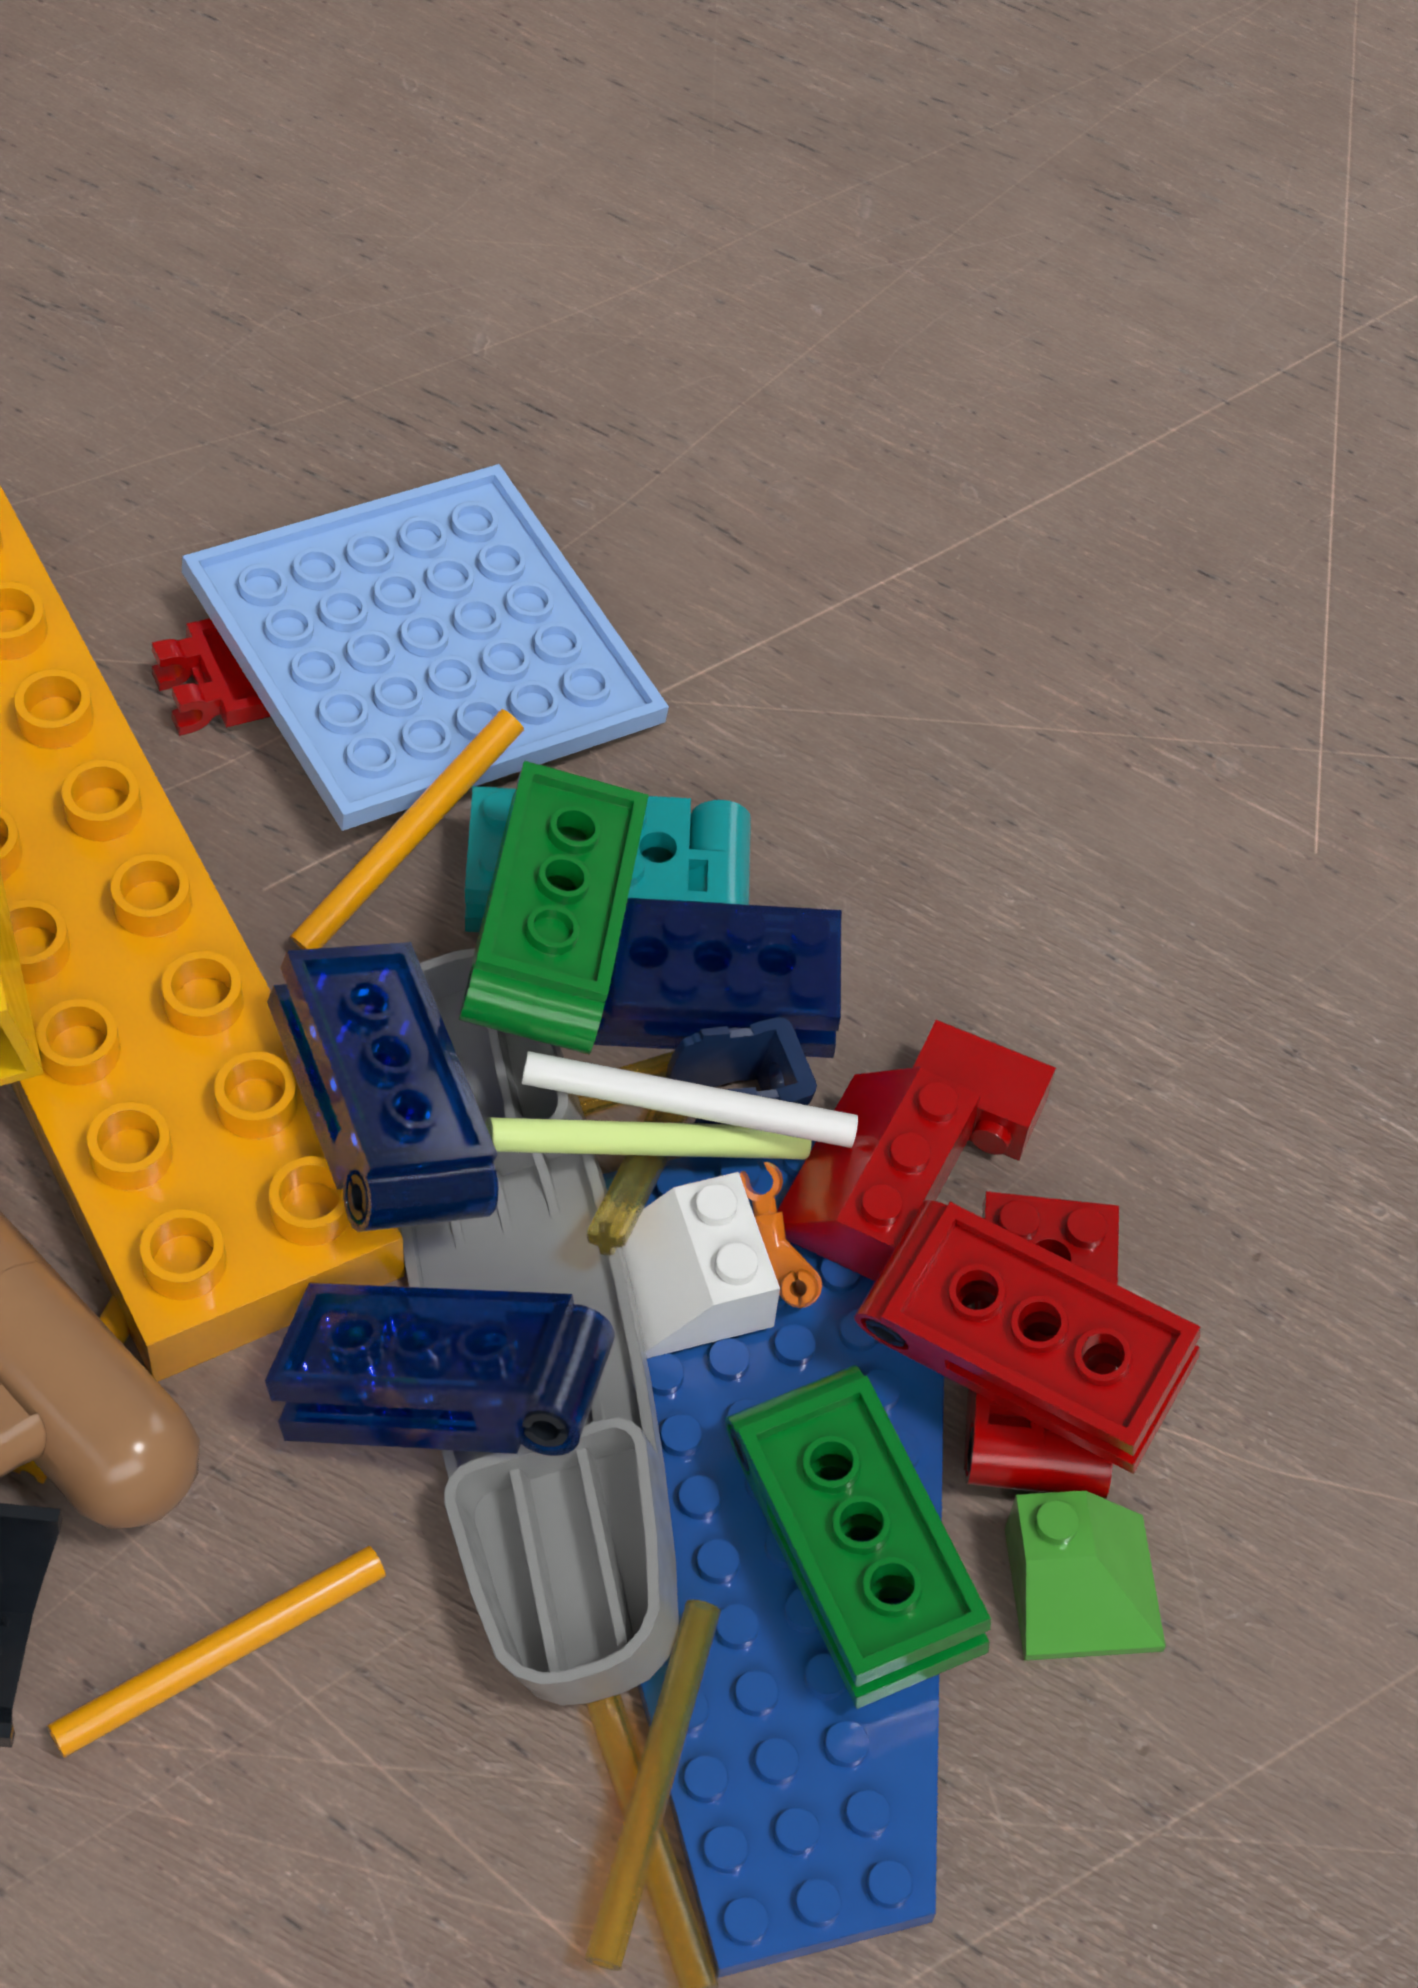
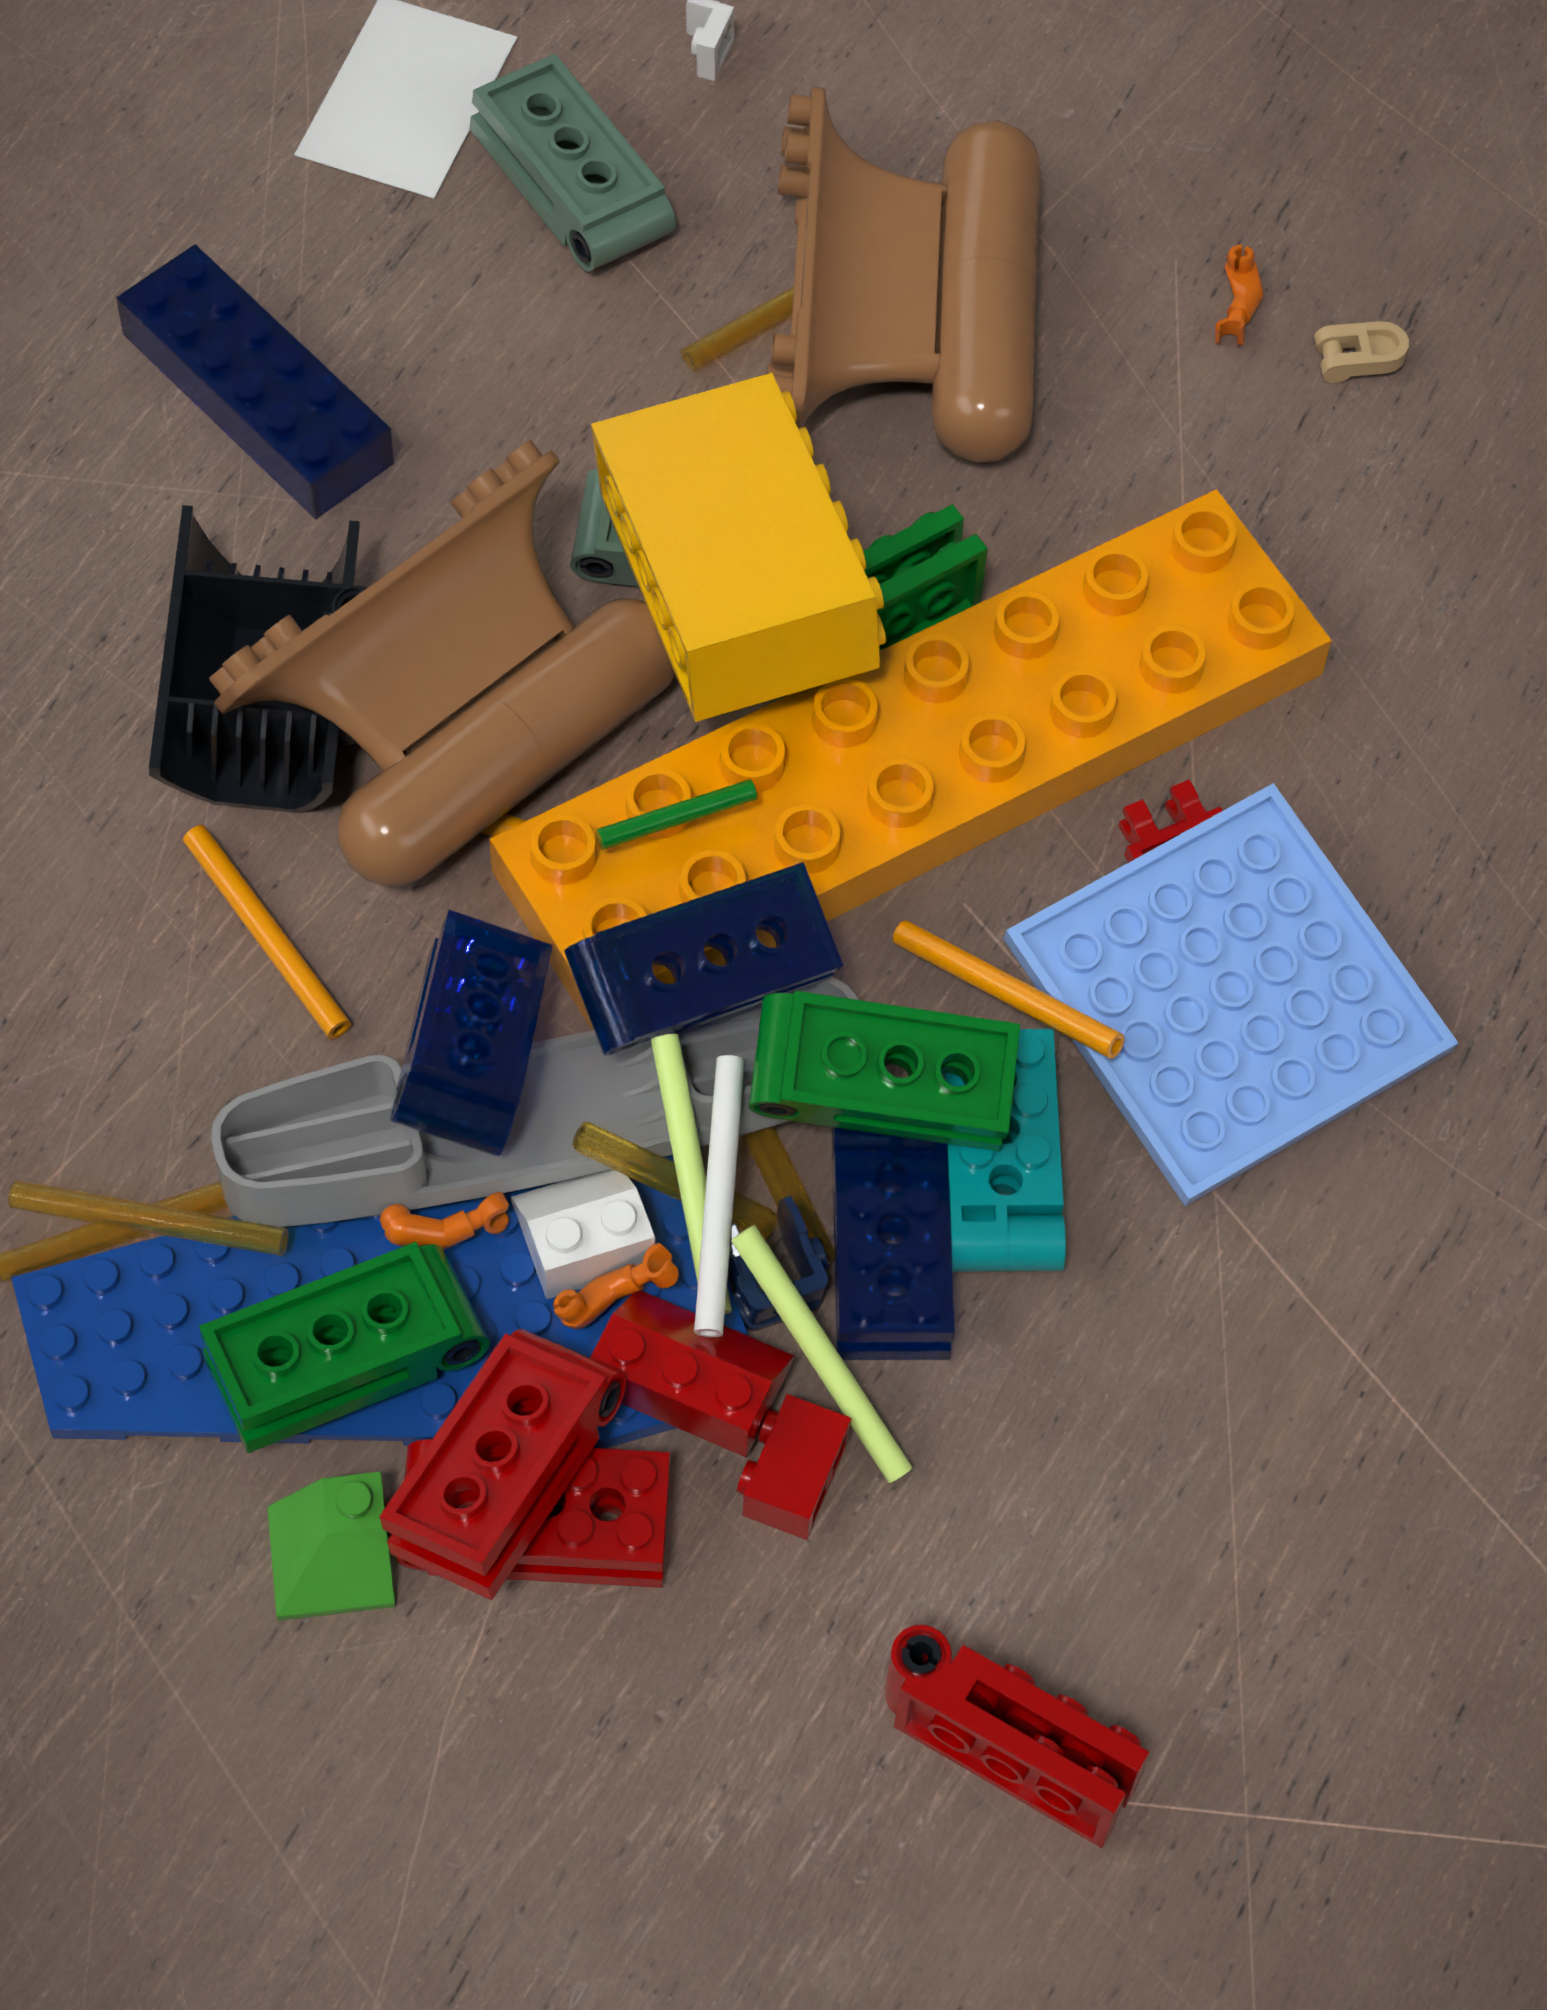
camera: 90 degrees right, 5 degrees up
(166, 1113) = (676, 814): none -> green bar
(686, 1410) = (405, 1228): none -> orange arm
(858, 1038) = (821, 1353): none -> yellowish green piece
(1255, 944) = (1013, 1732): none -> red hinge

